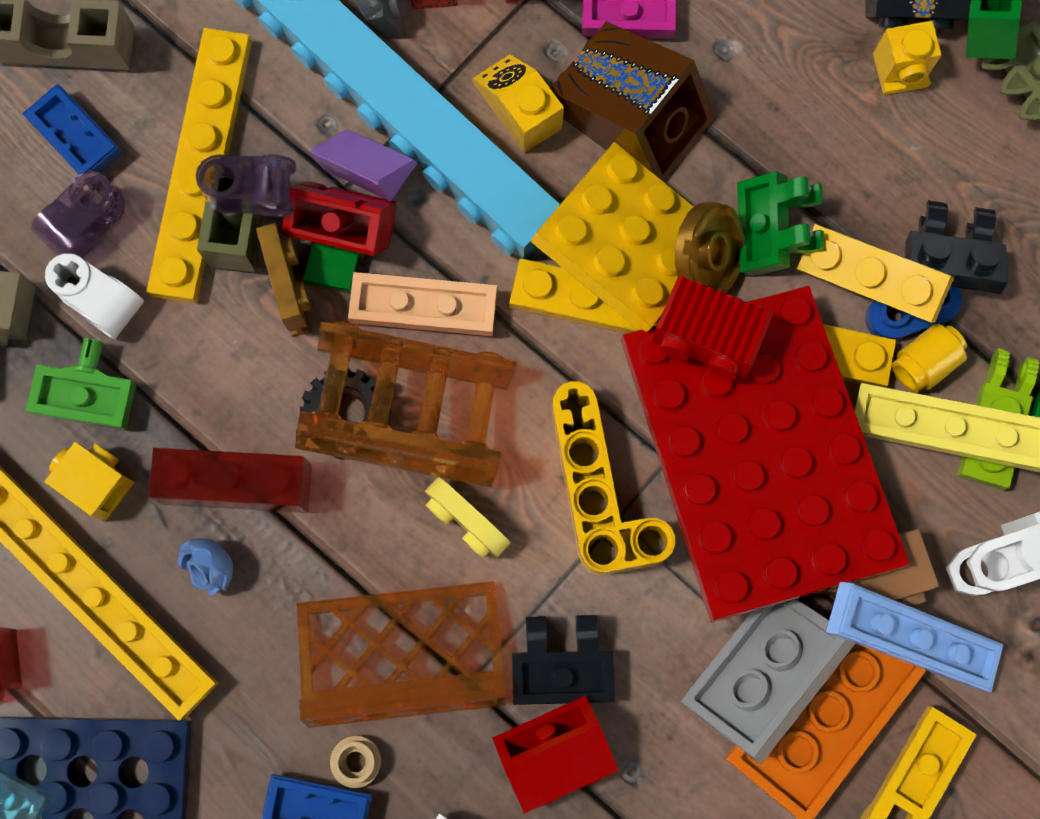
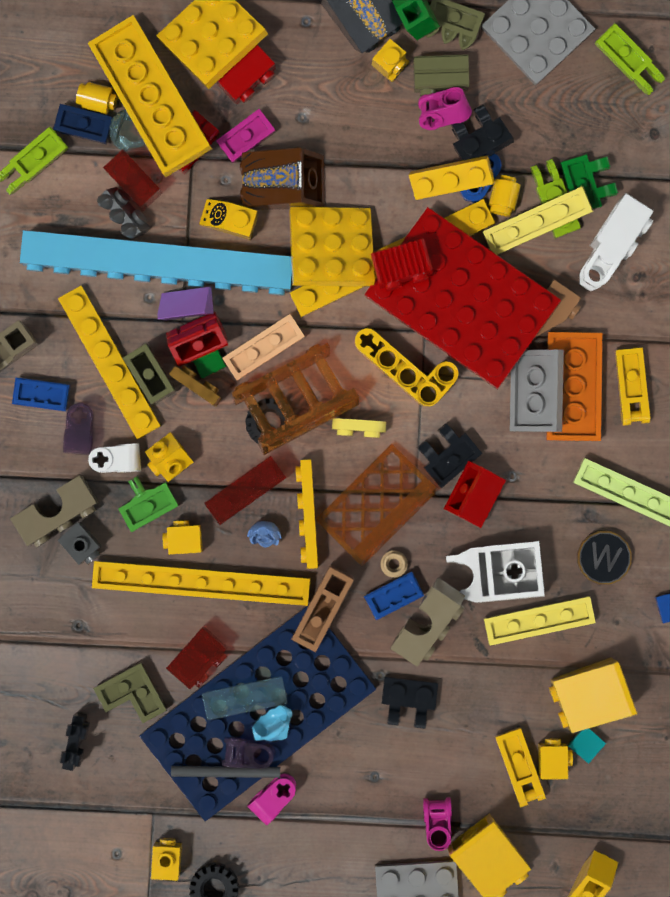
camera: 40 degrees left, 10 degrees up
(163, 348) = (168, 457): none -> yellow brick
(193, 742) = (322, 608): none -> medium nougat slope
(251, 186) = (154, 357): piece -> none
(278, 602) = (306, 502): none -> yellow plate
(709, 245) = (371, 225): pearl gold tile -> none
(765, 221) = (385, 190): green plate -> none
(914, 637) = (587, 328): light blue tile -> none
(938, 172) = (444, 107): none -> dark pink piece
(964, 129) = (440, 73): none -> olive brick

